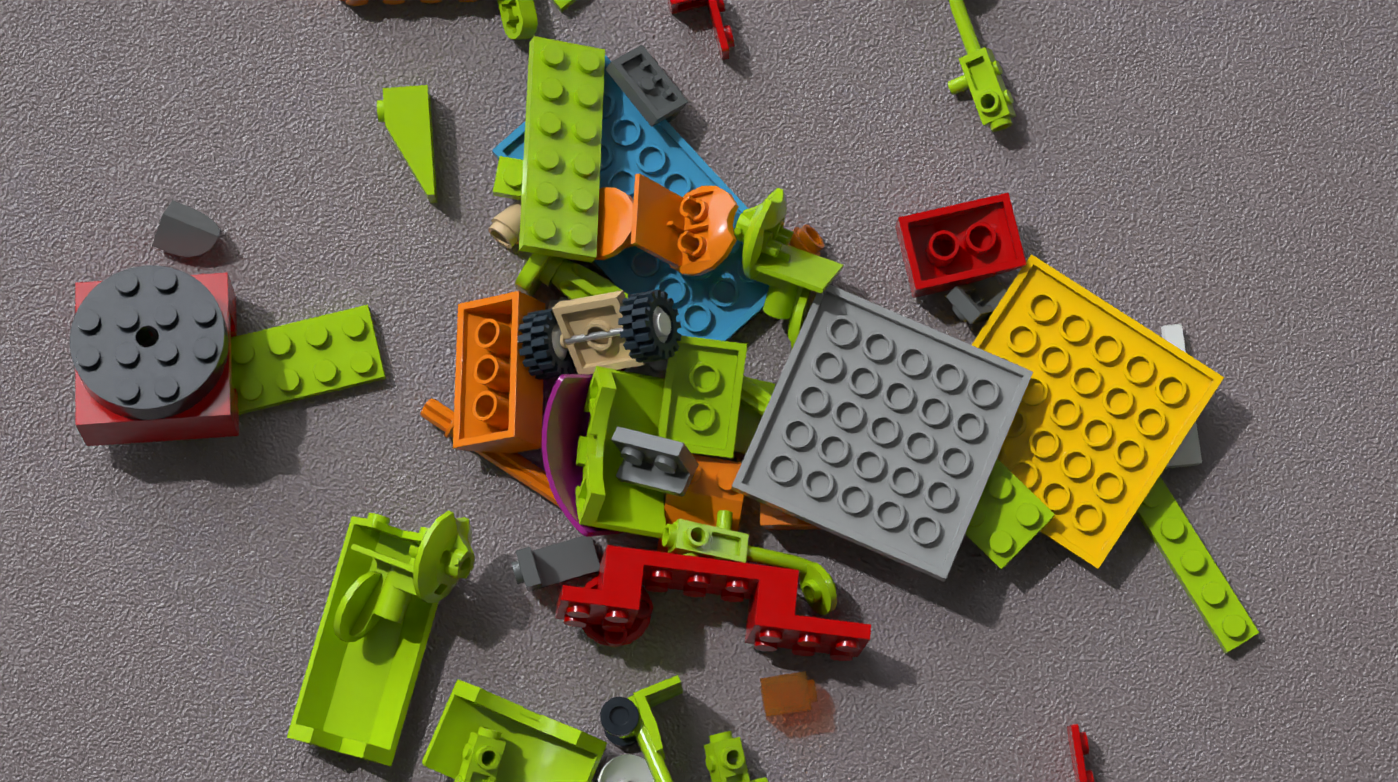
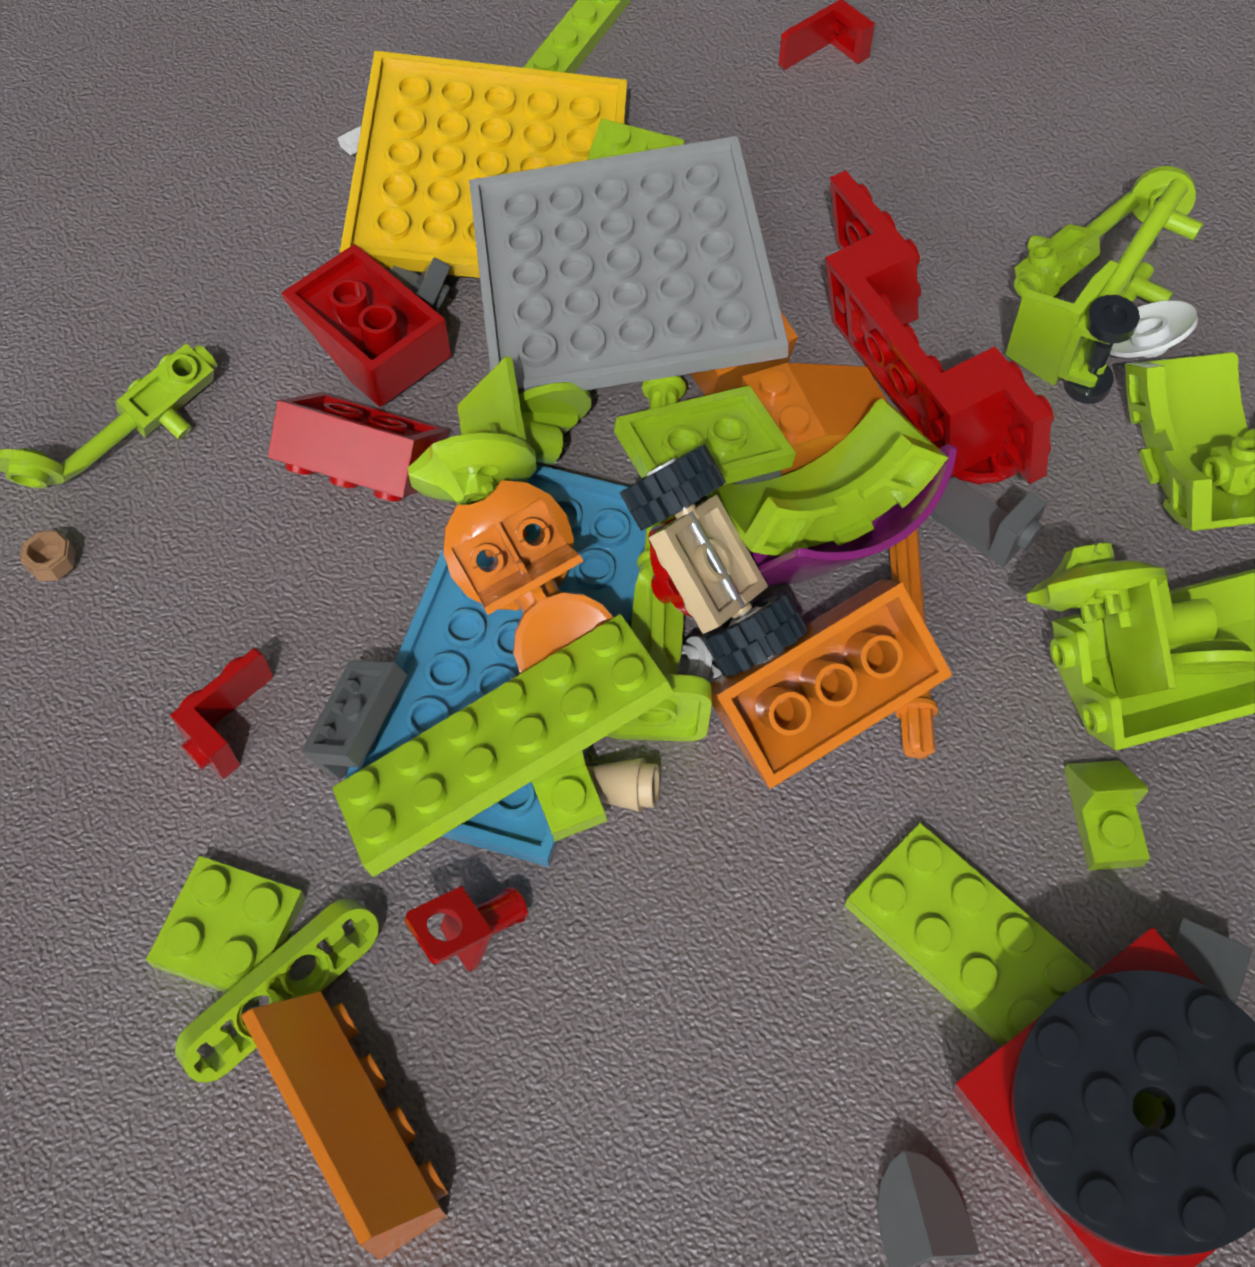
camera: 120 degrees left, 20 degrees down
(210, 466) = (1211, 956): none -> dark grey brick
(325, 492) = (1107, 814): none -> lime slope
(409, 125) = (577, 984): lime slope -> none
(476, 84) = (465, 924): none -> red bracket
(654, 462) = (818, 439): dark grey bracket -> none
(725, 544) = (846, 342): lime piece -> none
(787, 694) = (945, 257): clear orange brick -> none
(865, 194) = (350, 443): none -> slope

